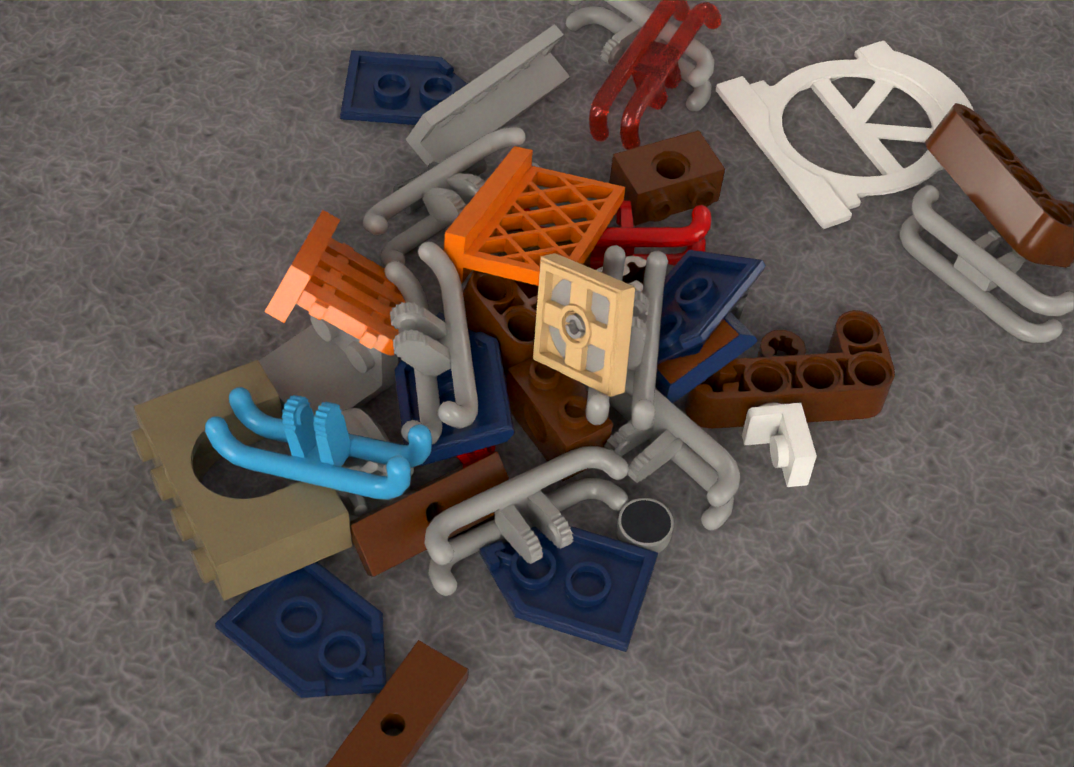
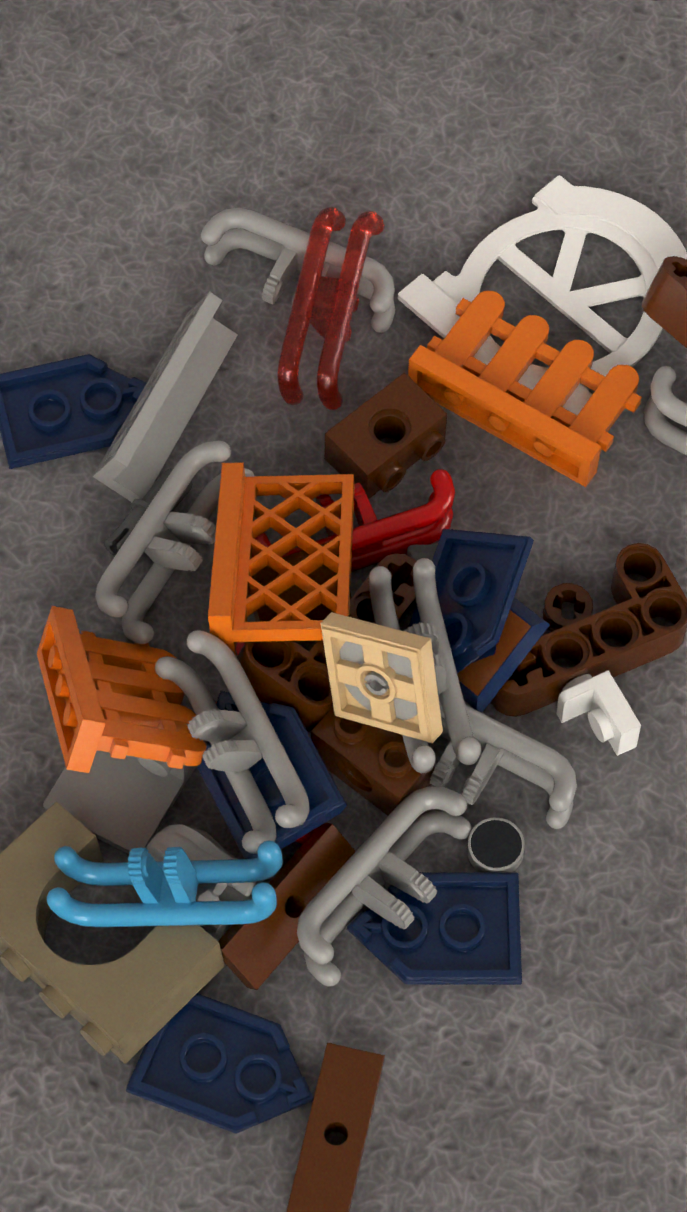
camera: 15 degrees left, 10 degrees up
(790, 198) = (512, 412): none -> orange fence

